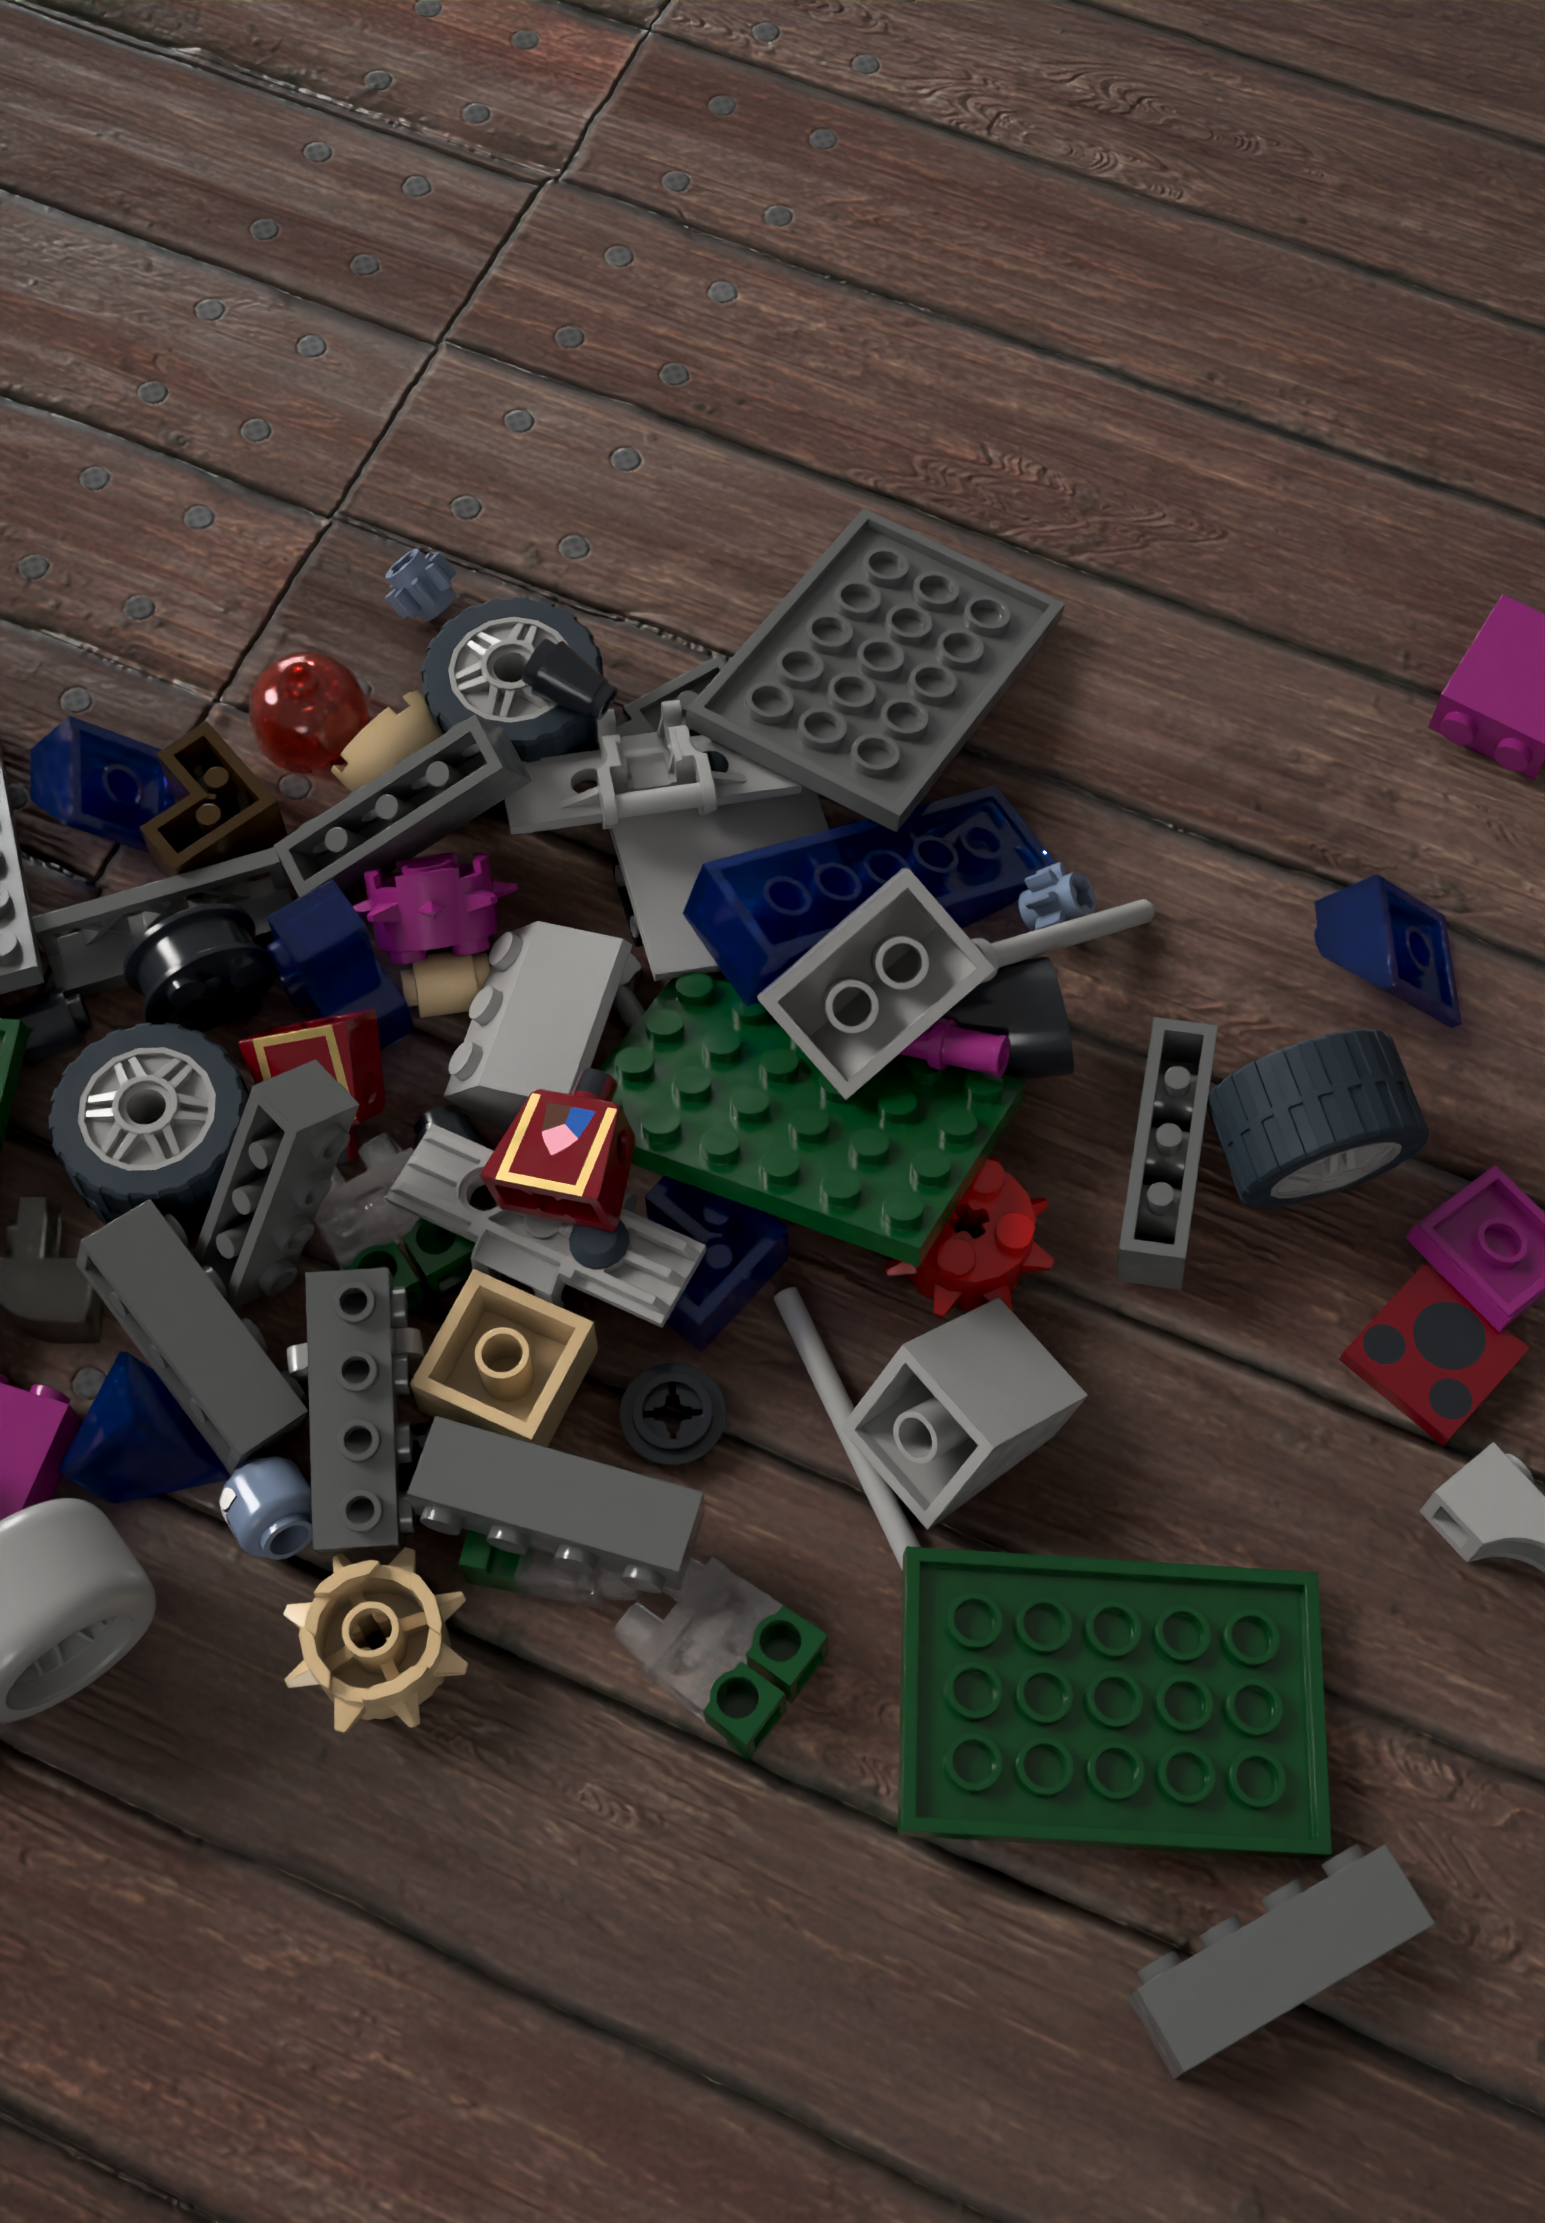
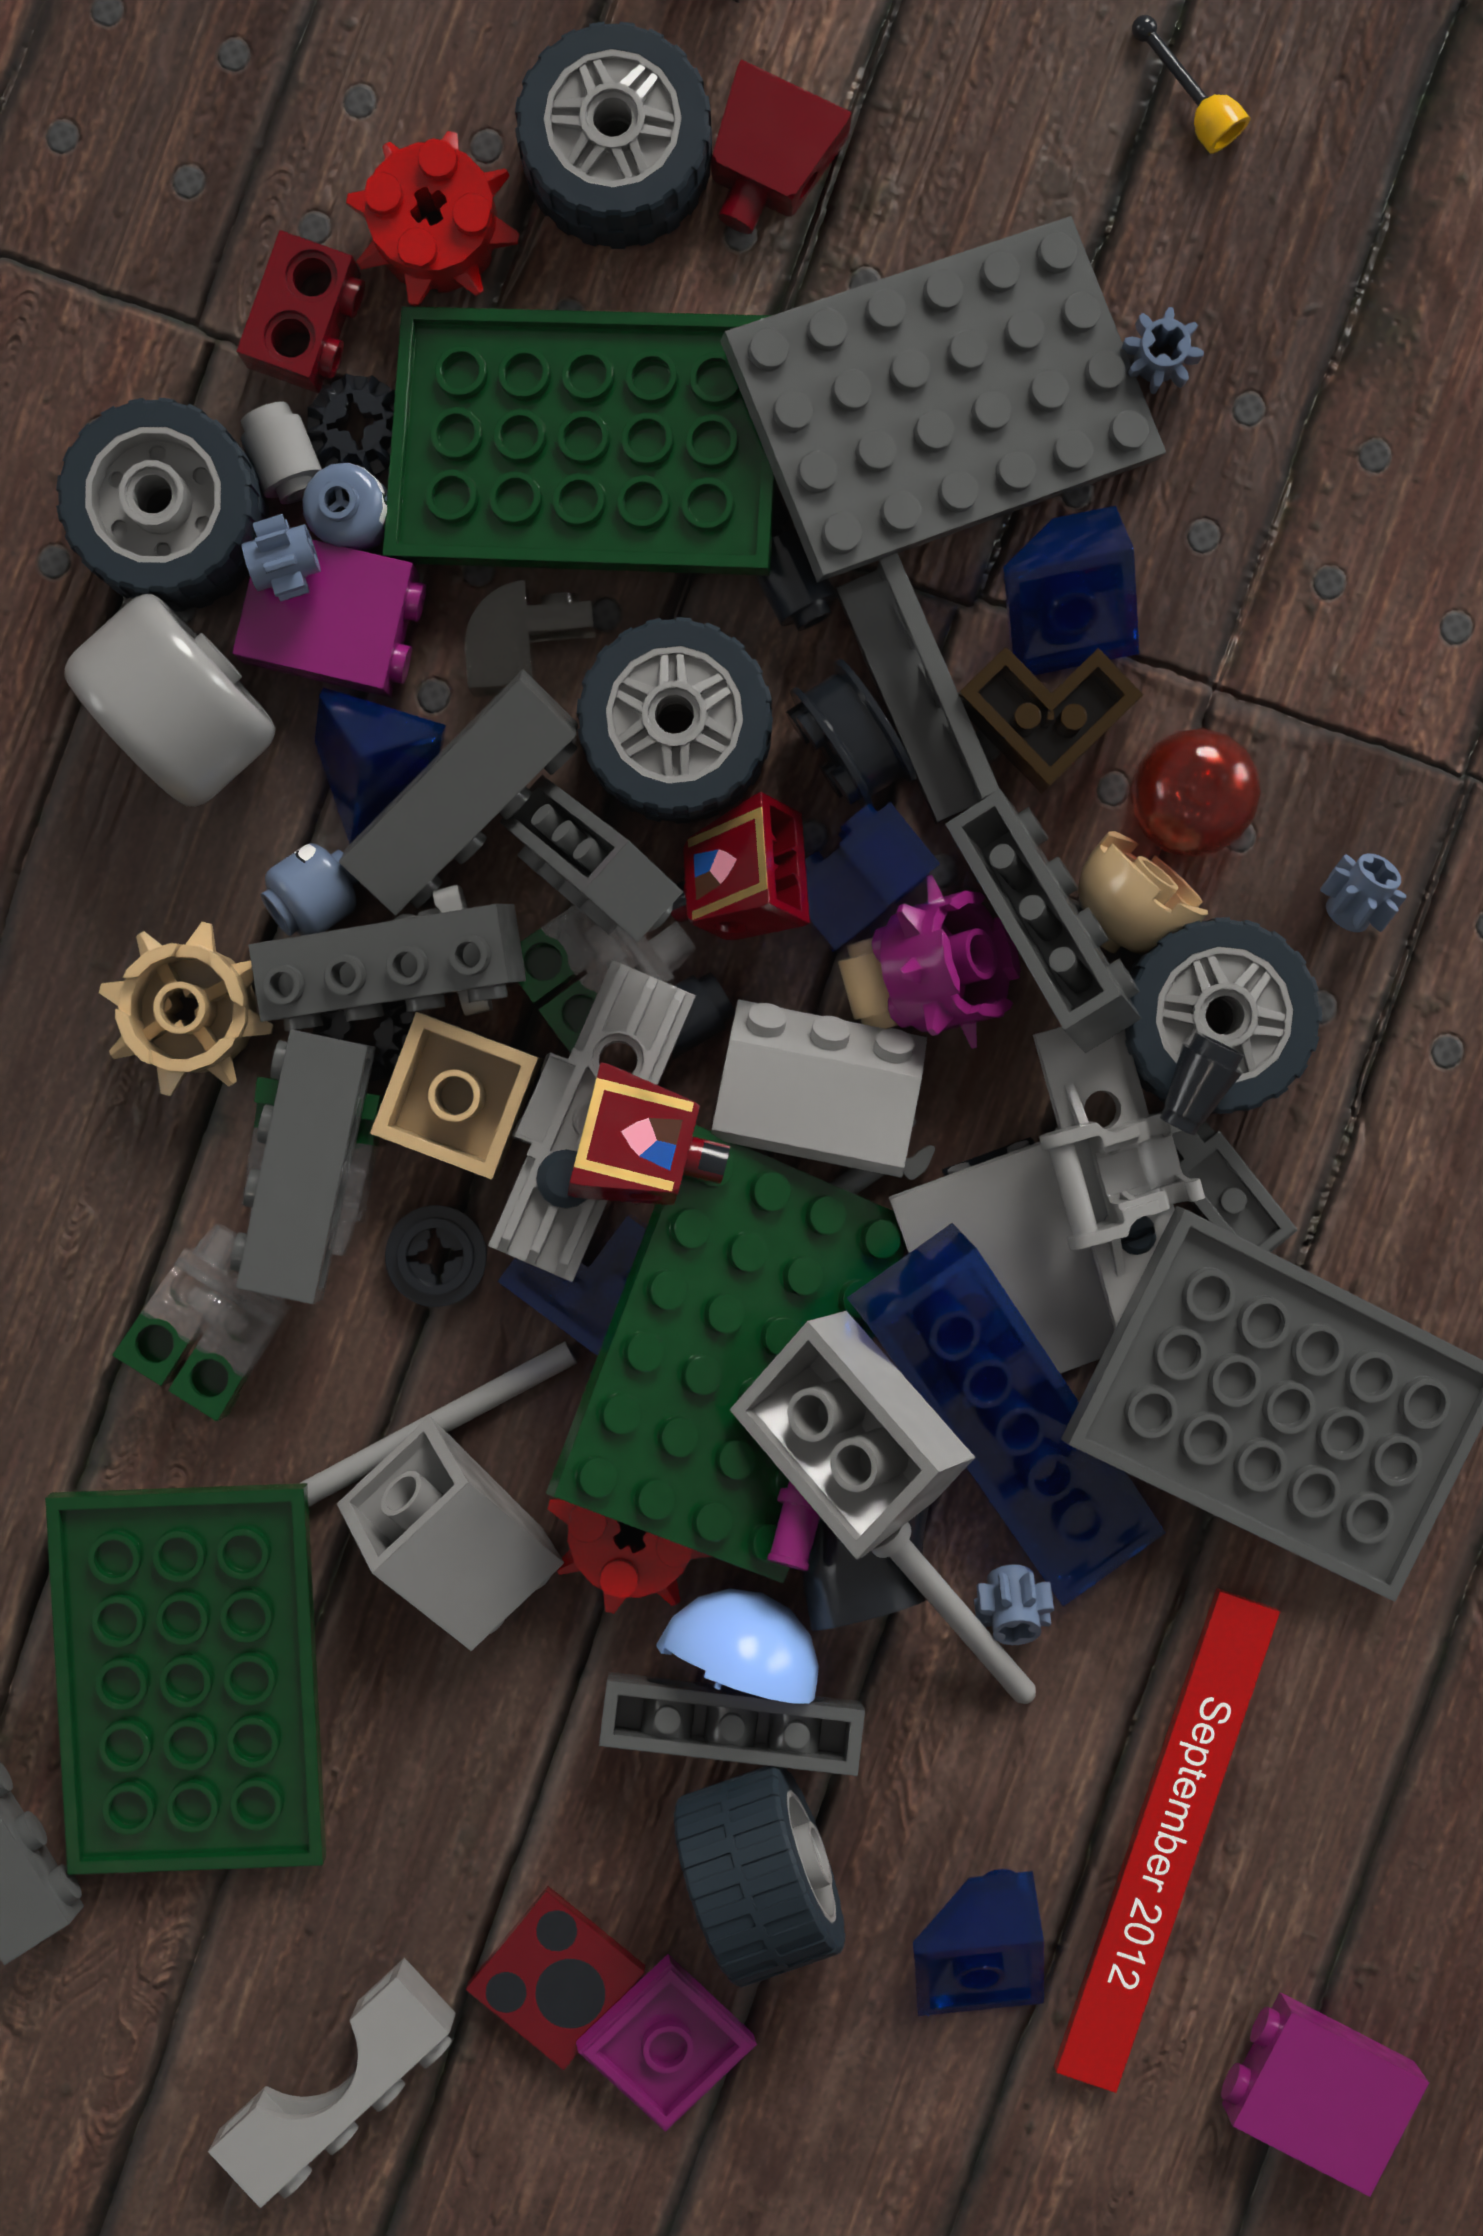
camera: 90 degrees right, 25 degrees up
(1074, 1122) = (745, 1645): none -> light blue cylinder
(1289, 803) = (1166, 1840): none -> red tile

